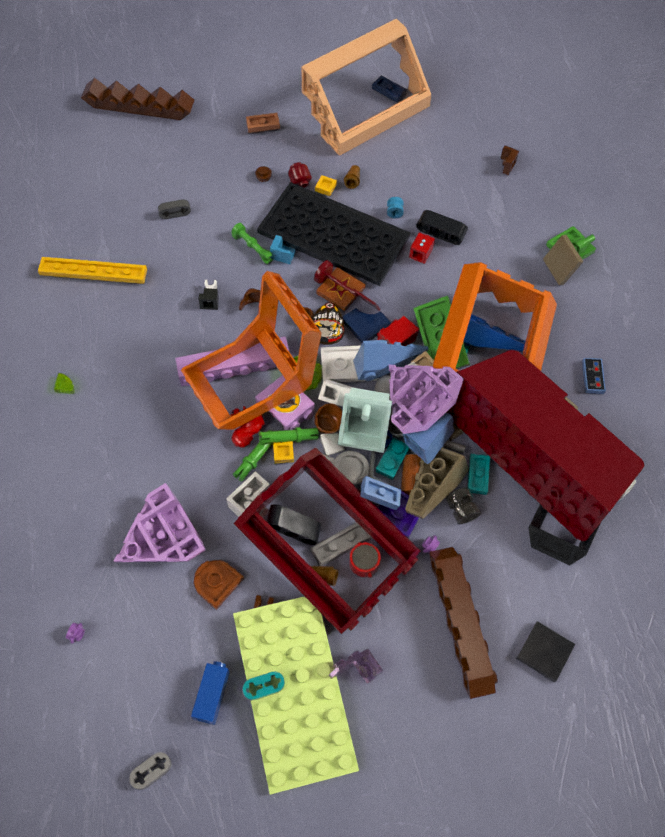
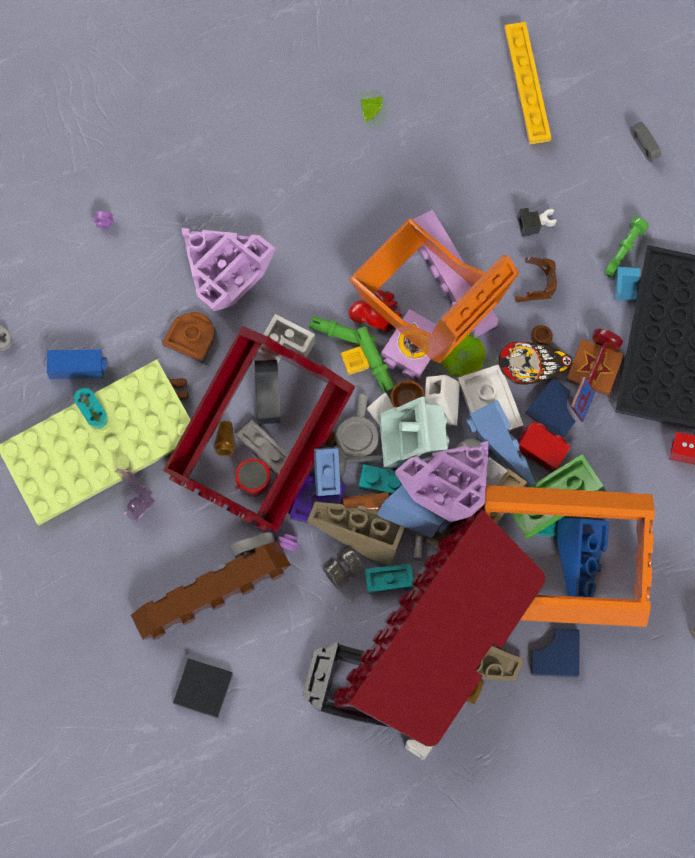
camera: 75 degrees right, 10 degrees up
(426, 574) = (248, 546): none -> light grey beam
(563, 371) = (560, 656): none -> dark blue tile
(593, 376) = (564, 694): tile -> none

